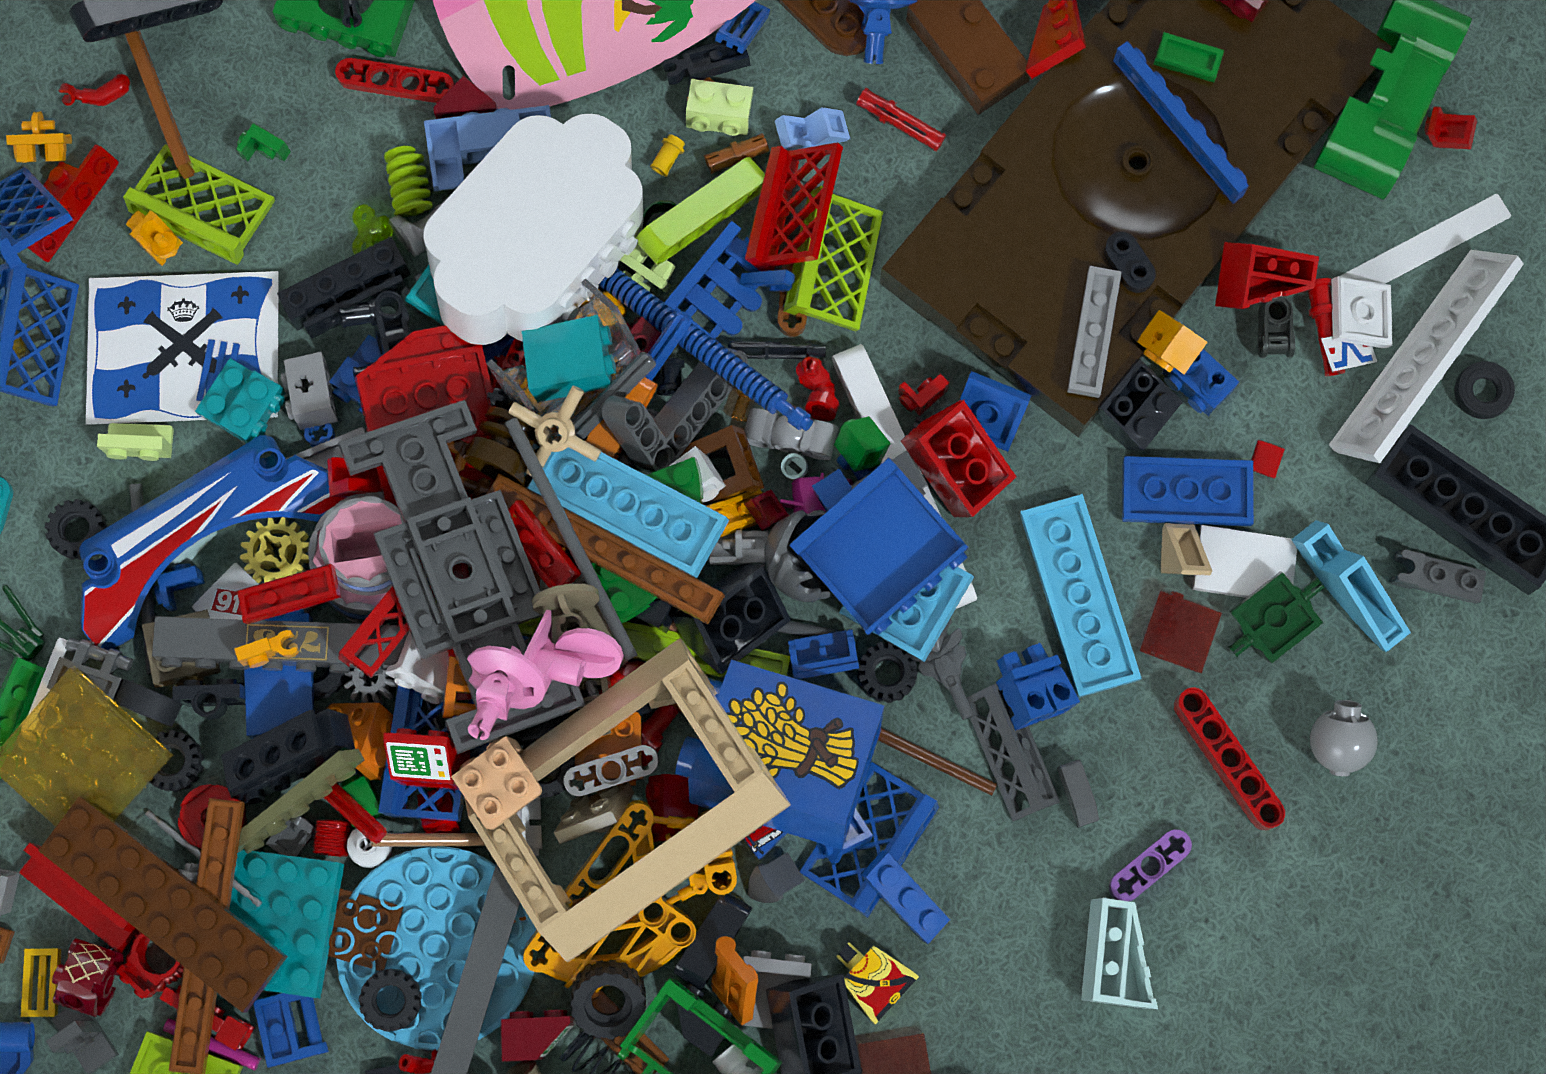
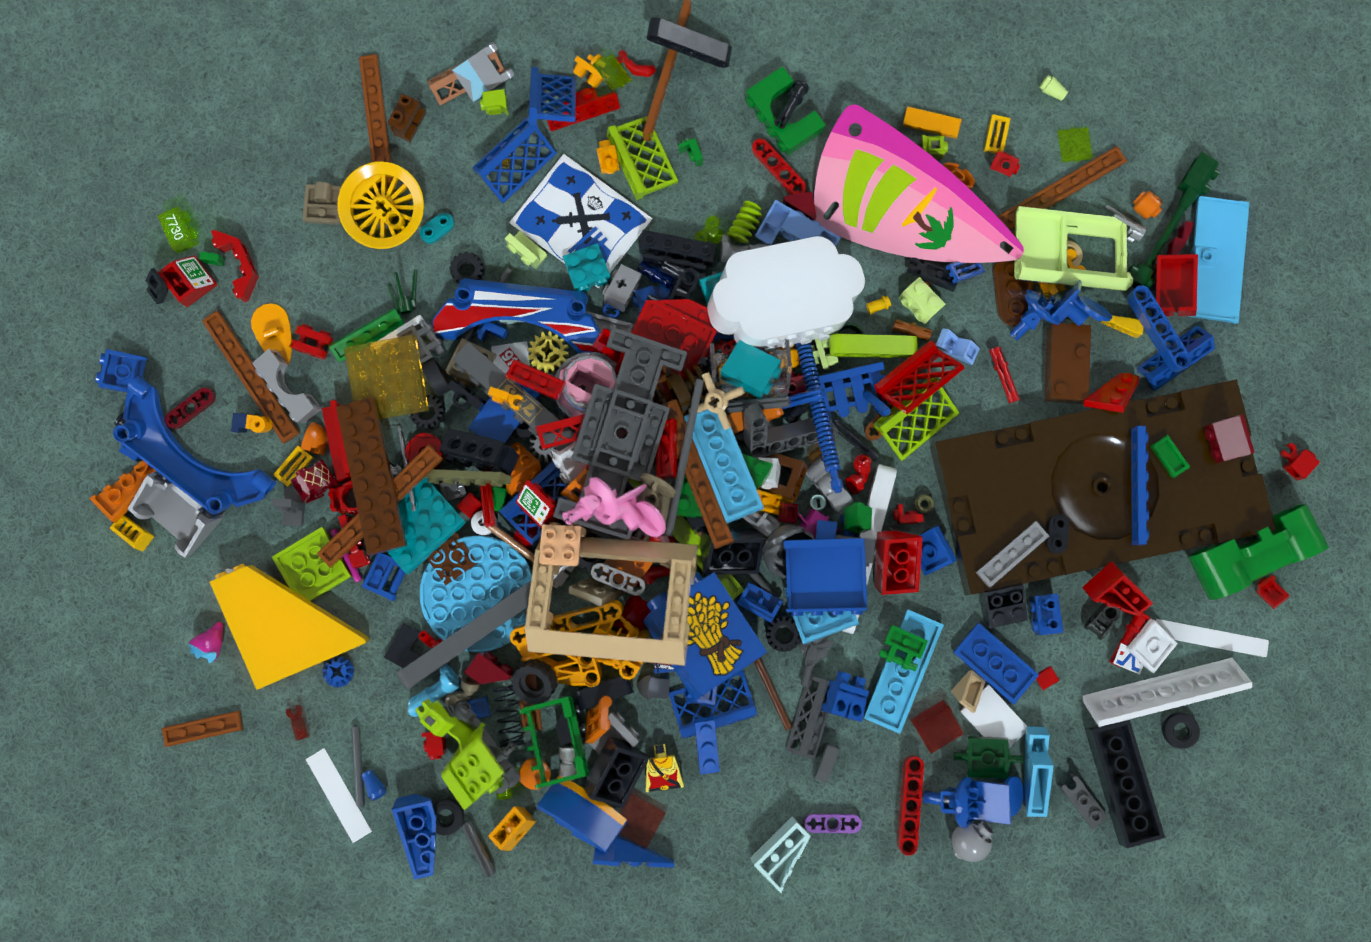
camera: 40 degrees right, 5 degrees up
(43, 922) = (315, 439): none -> orange brick
(71, 122) = (612, 72): none -> clear neon green piece
(341, 339) = (655, 274): none -> clear blue pin
(369, 1005) = (426, 601): black tyre -> none
(936, 352) = (930, 503): none -> olive plate
(1051, 554) = (906, 642): none -> green plate
(1170, 343) = (1044, 589): light orange brick -> none
(1310, 679) = (980, 800): none -> blue piece

